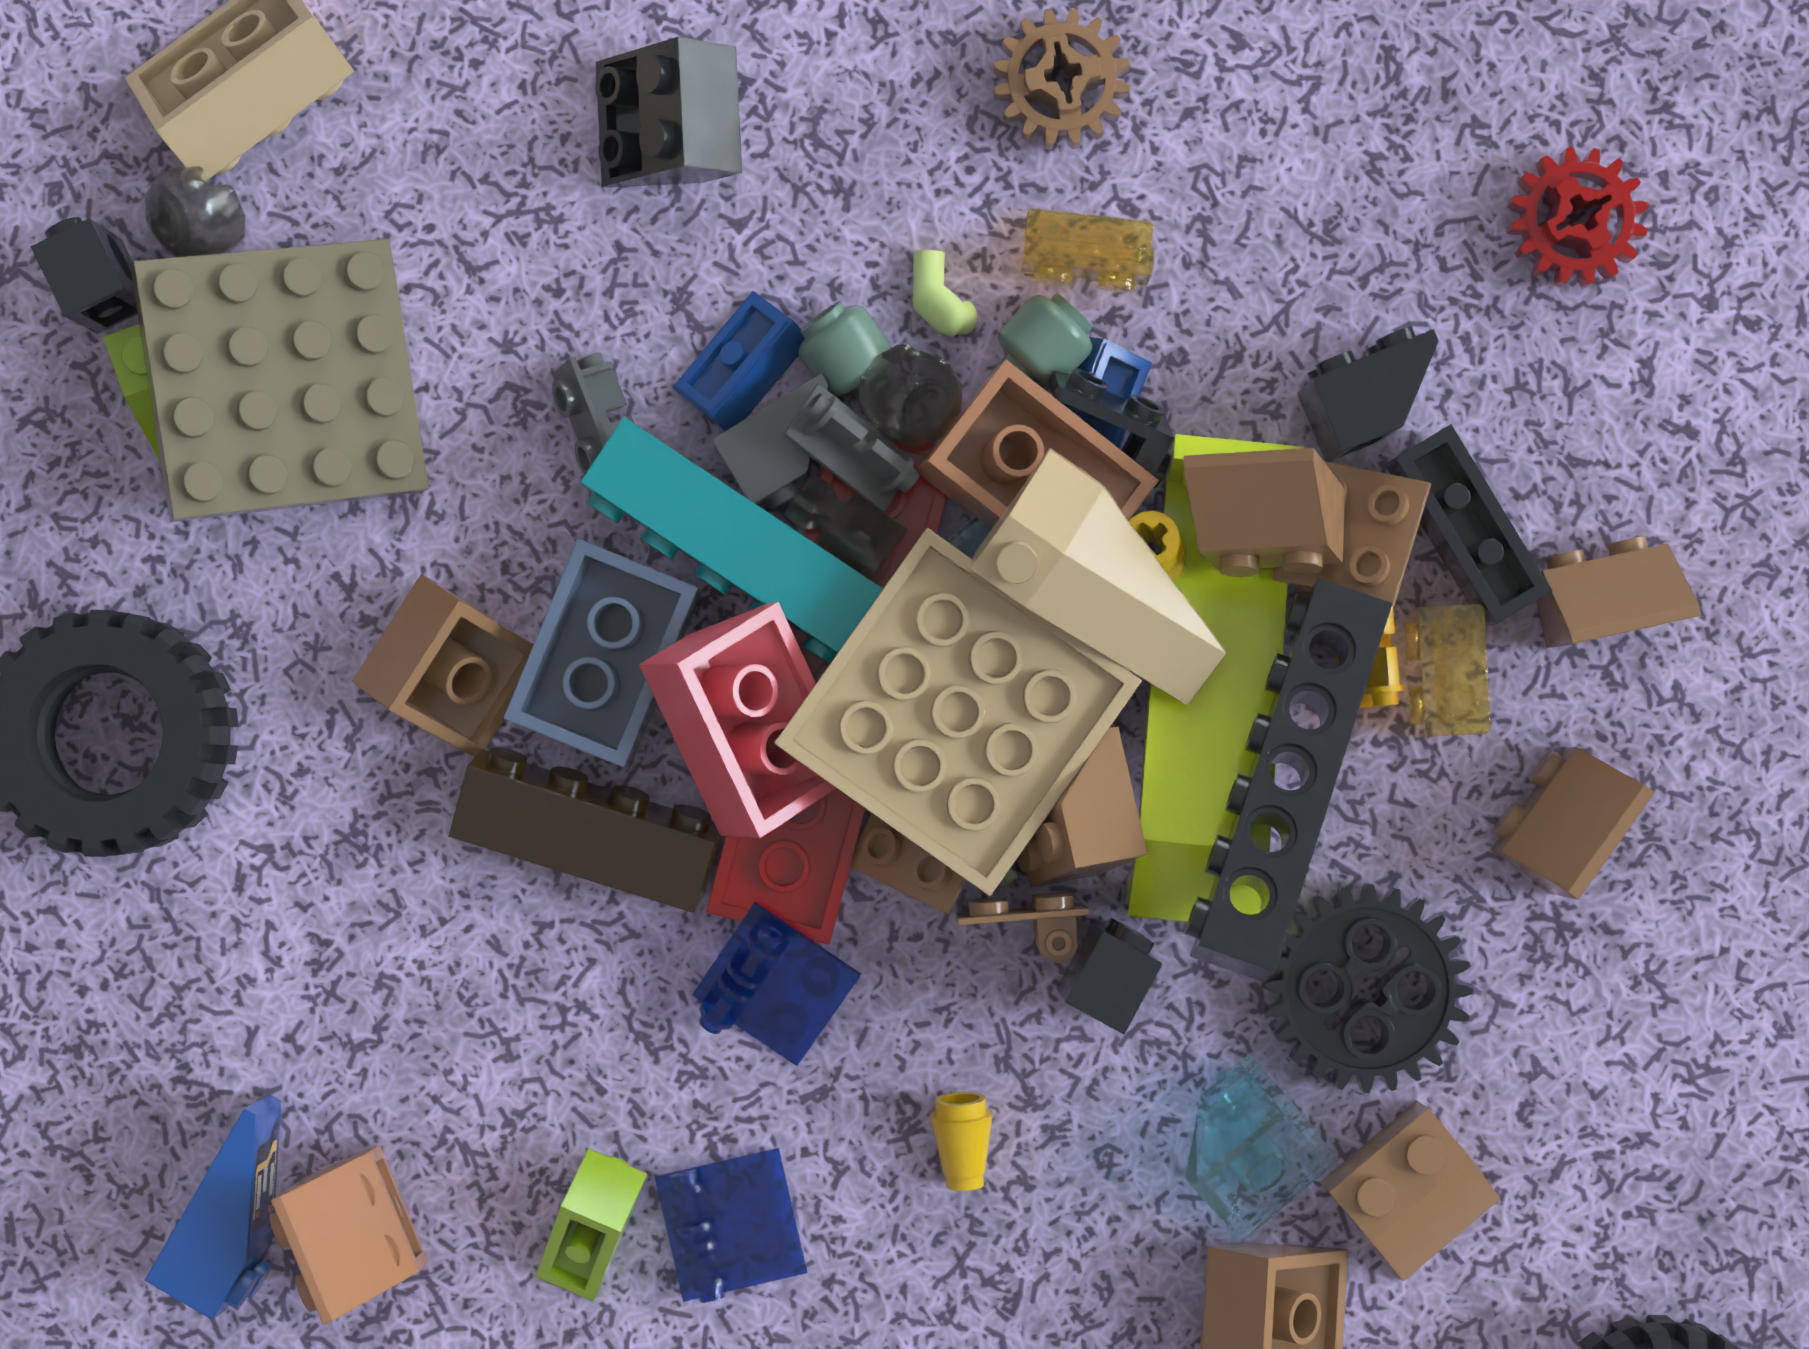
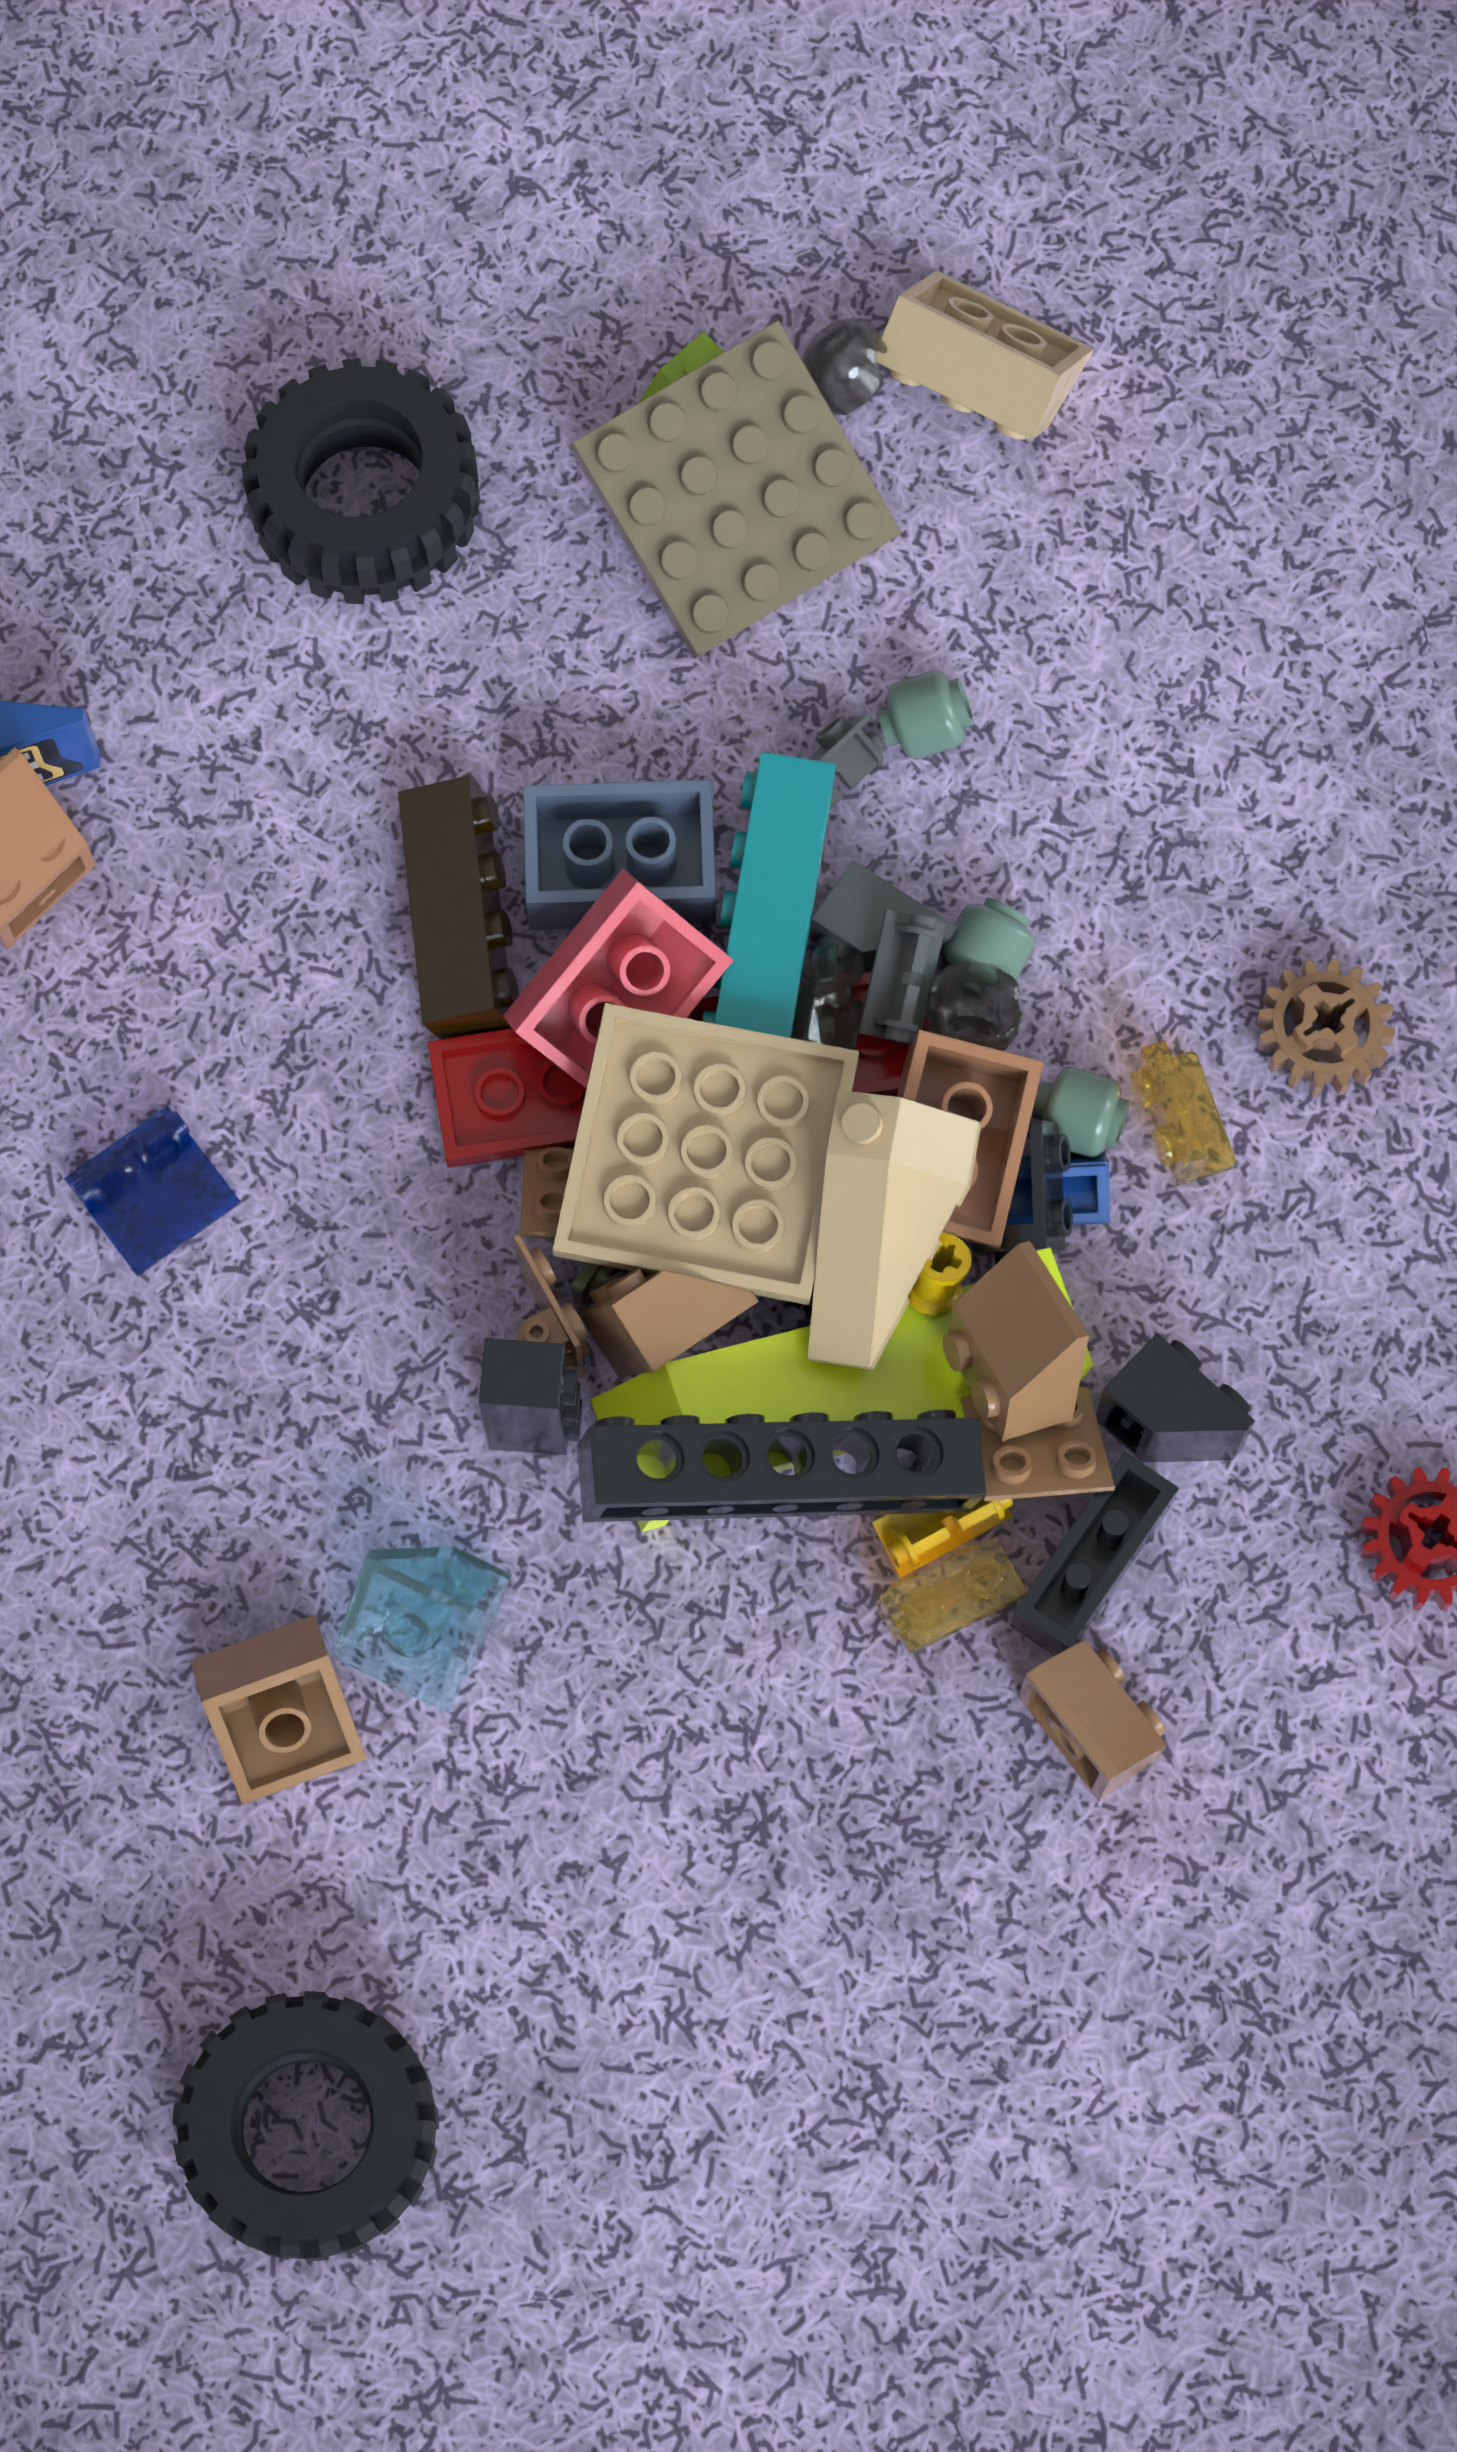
camera: 60 degrees right, 15 degrees down
(88, 273) = (751, 293): black brick -> none
(445, 667) = (545, 728): medium nougat slope -> none
(588, 302) = (926, 714): none -> sand green head
(590, 1224) = (101, 1063): lime slope -> none
(669, 114) = (1125, 711): black slope -> none
(741, 362) = (937, 868): blue slope -> none
(773, 985) = (386, 1128): clear blue hinge -> none
(935, 301) = (1072, 1008): yellowish green arm -> none
(962, 1138) = (319, 1356): yellow cone -> none
(1406, 1030) = (597, 1714): black gear -> none
(1411, 1189) = (446, 1786): medium nougat slope -> none
(1569, 821) = (862, 1771): medium nougat slope -> none

